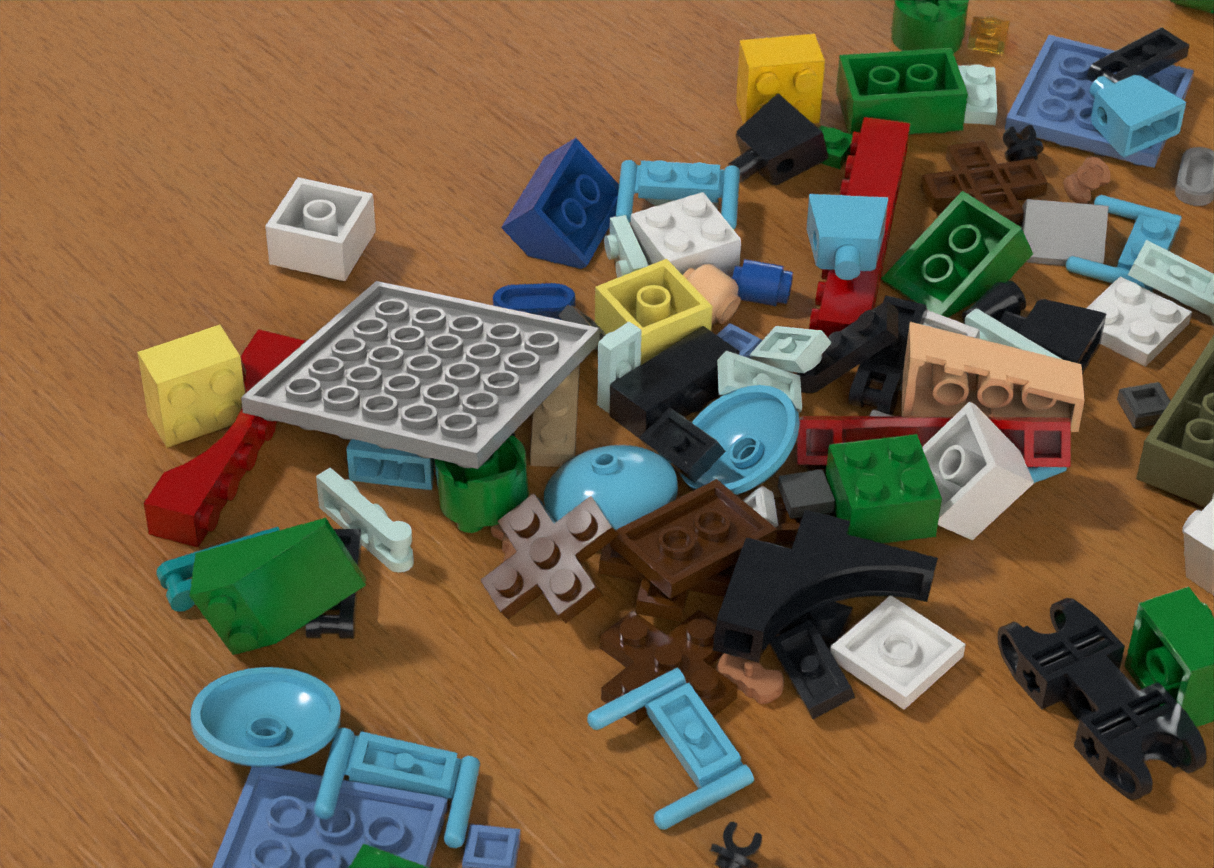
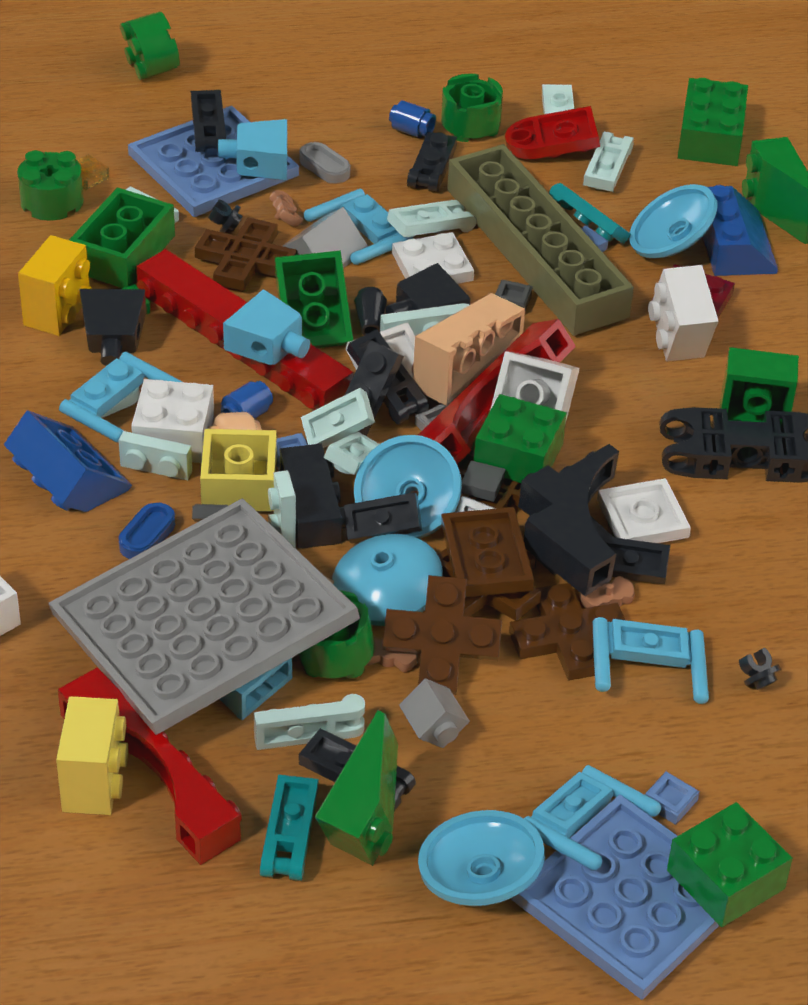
camera: 60 degrees left, 0 degrees up
(442, 602) = (434, 713): none -> light grey brick

